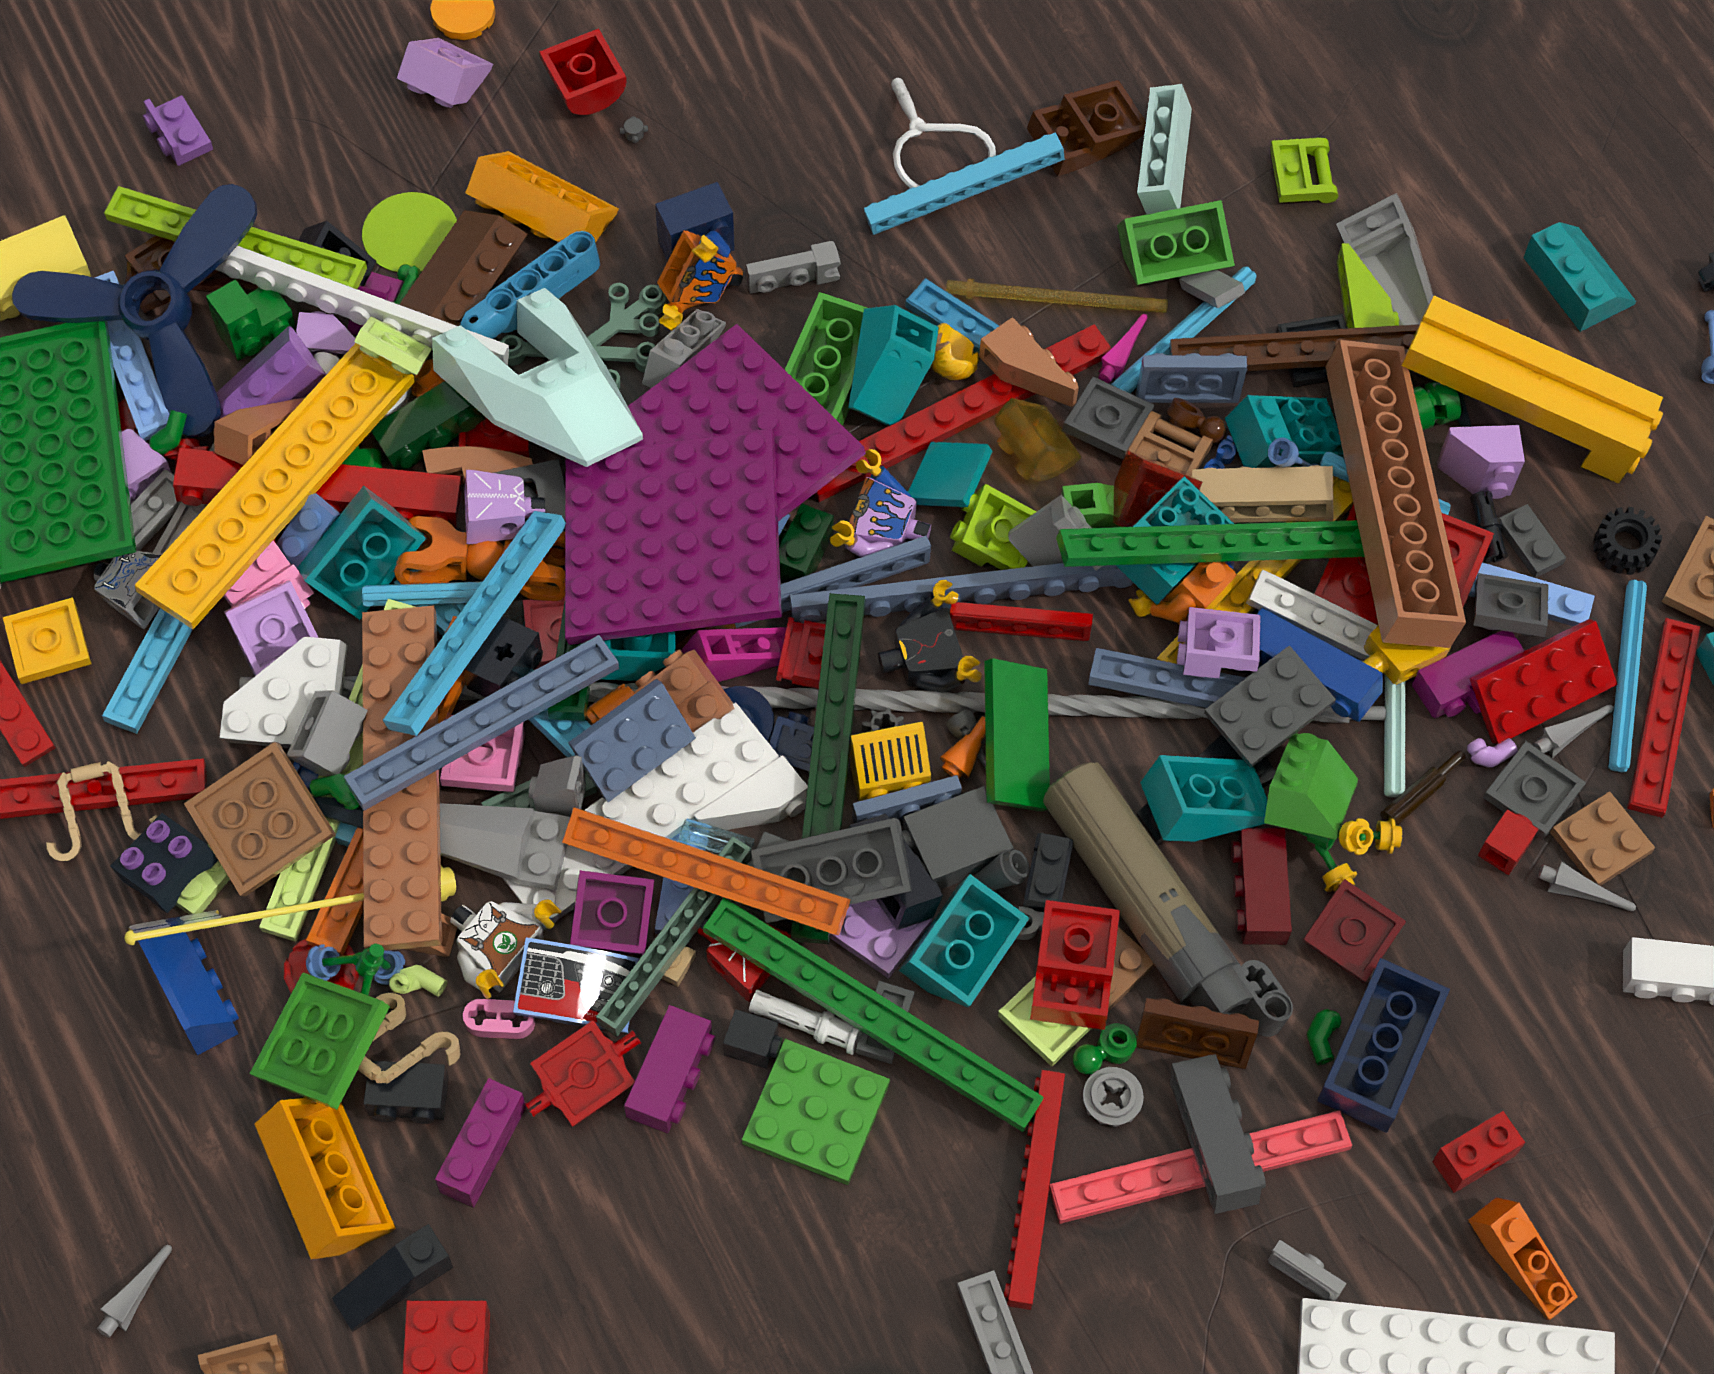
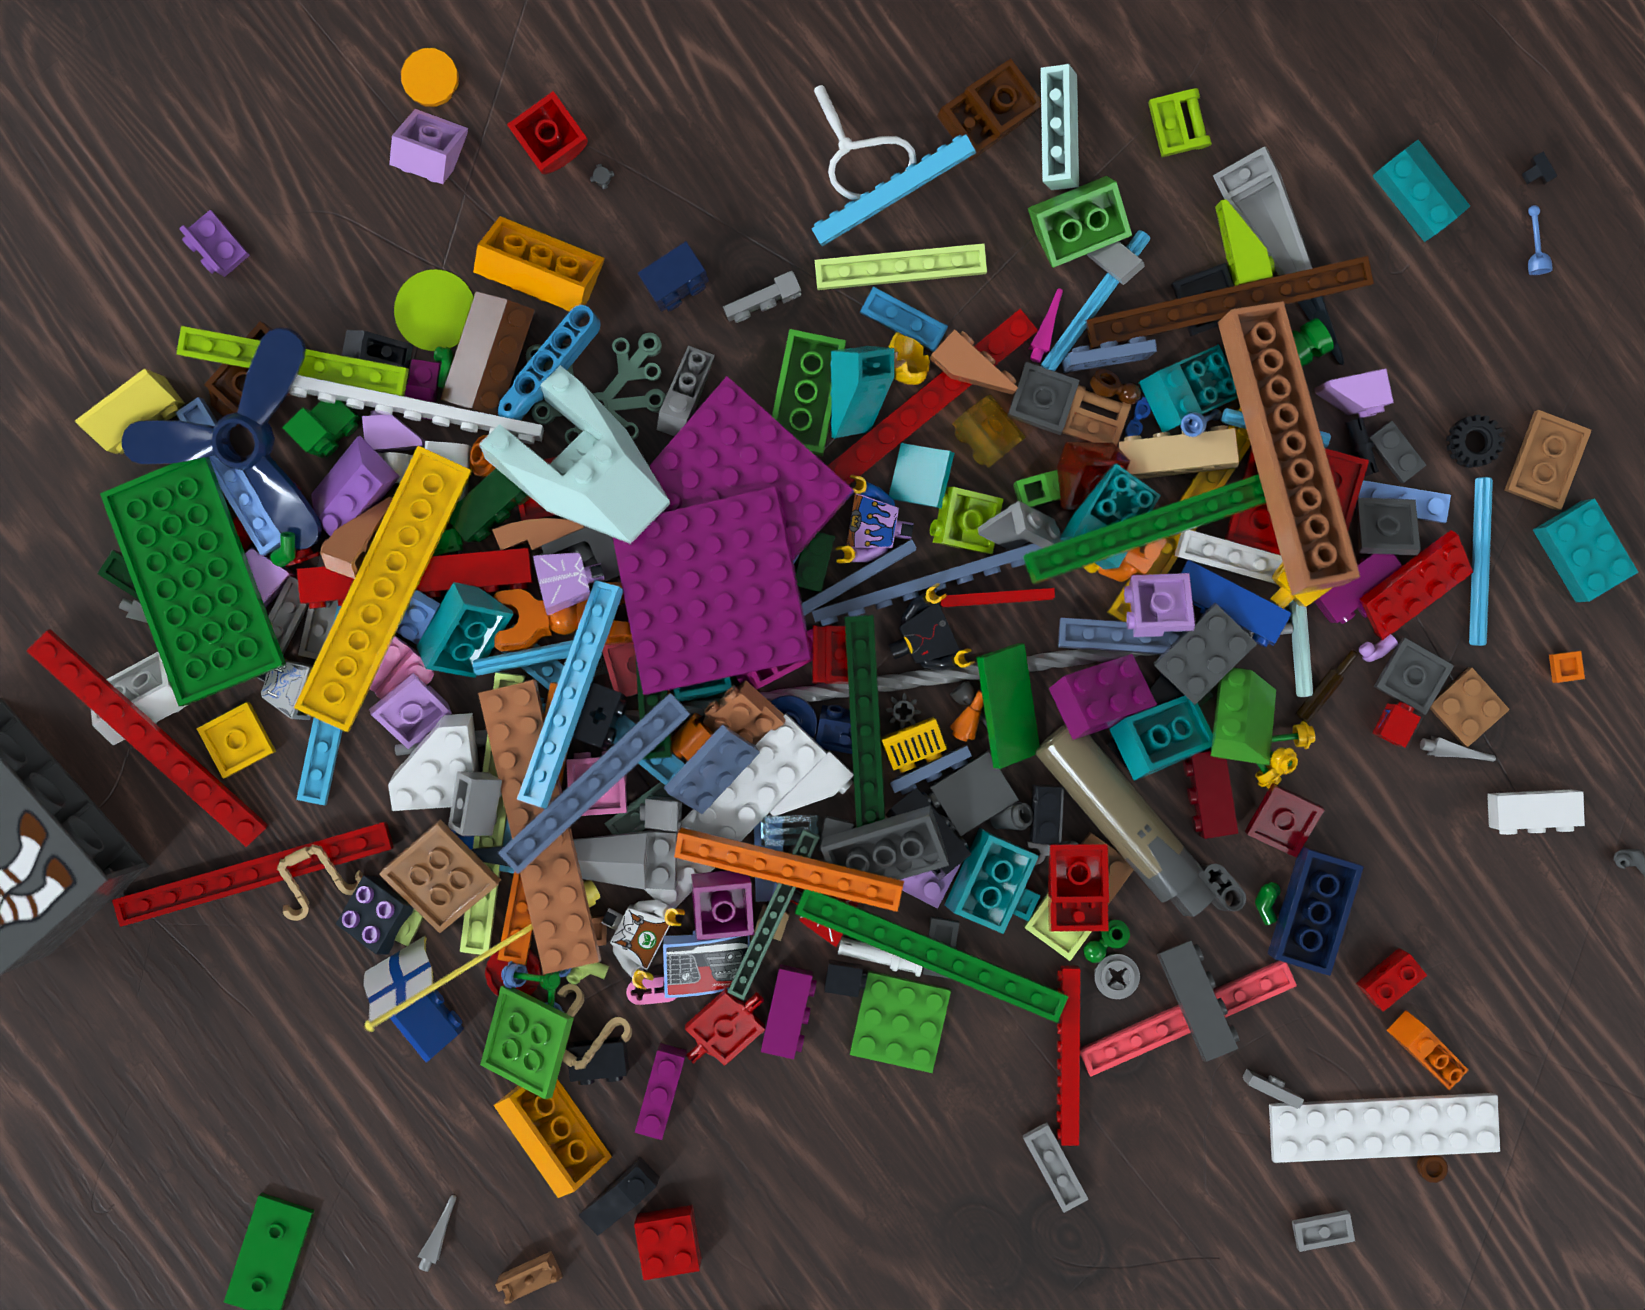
camera: 10 degrees left, 25 degrees up
(336, 787) = (492, 843): green arm -> none
(385, 341) = (448, 448): yellowish green plate -> none
(696, 274) = (682, 323): torso -> none
(960, 262) = (900, 266): none -> yellowish green plate
(972, 289) = (912, 289): clear yellow bar -> none
(1002, 984) = (1026, 904): none -> teal plate
(1129, 732) = (1101, 696): none -> magenta brick
(1196, 1032) = (1176, 925): reddish brown plate -> none
(1537, 386) = (1395, 322): yellow brick -> none
(1560, 735) = (1431, 624): light grey piece -> none
(1663, 718) = (1510, 592): red tile -> none

